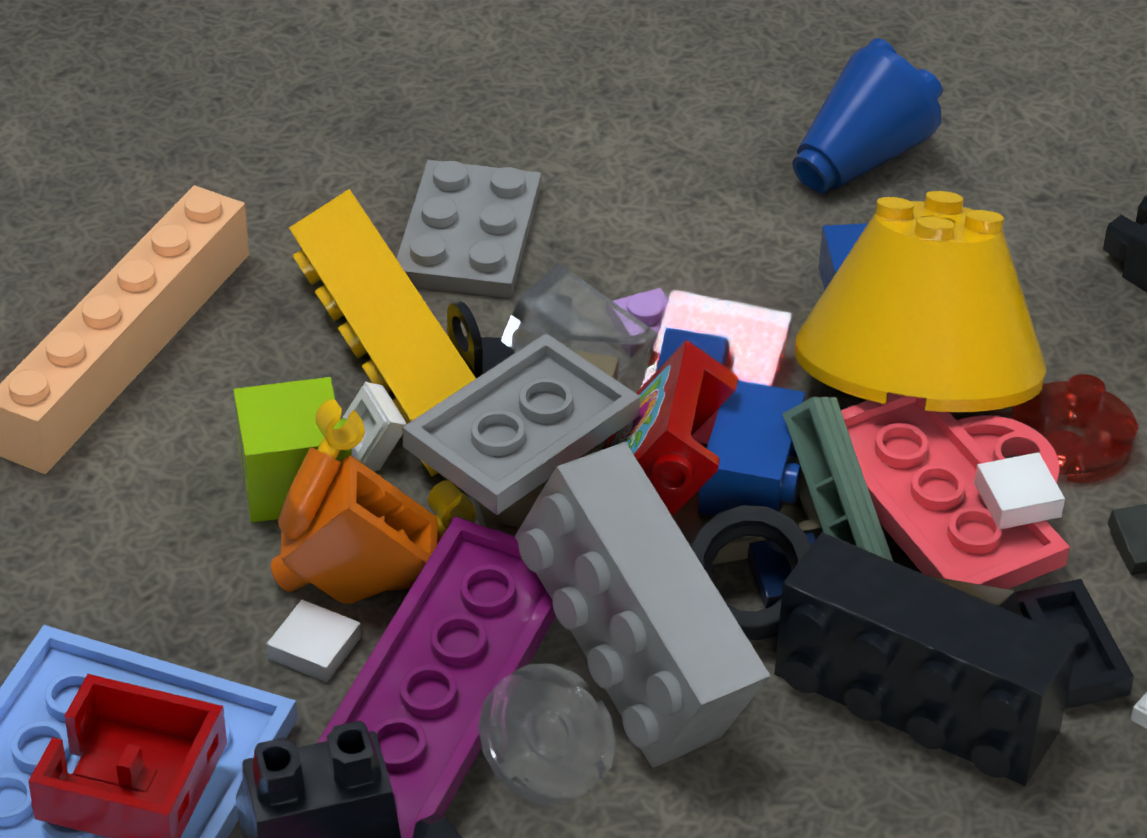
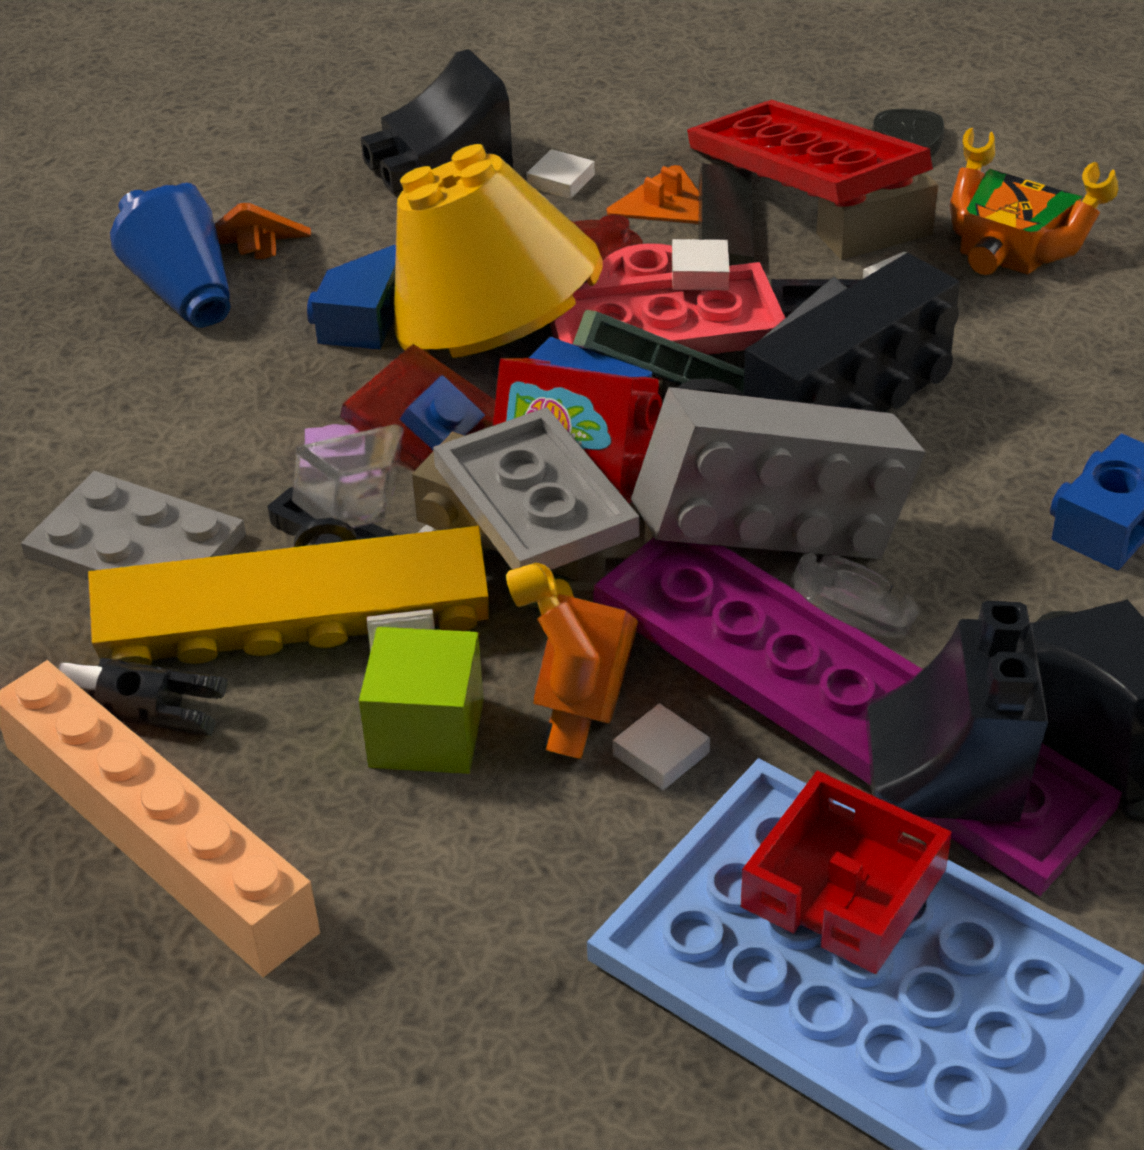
camera: 70 degrees left, 0 degrees up
(263, 285) = (148, 693): none -> black hinge
(954, 162) = (257, 230): none -> orange piece

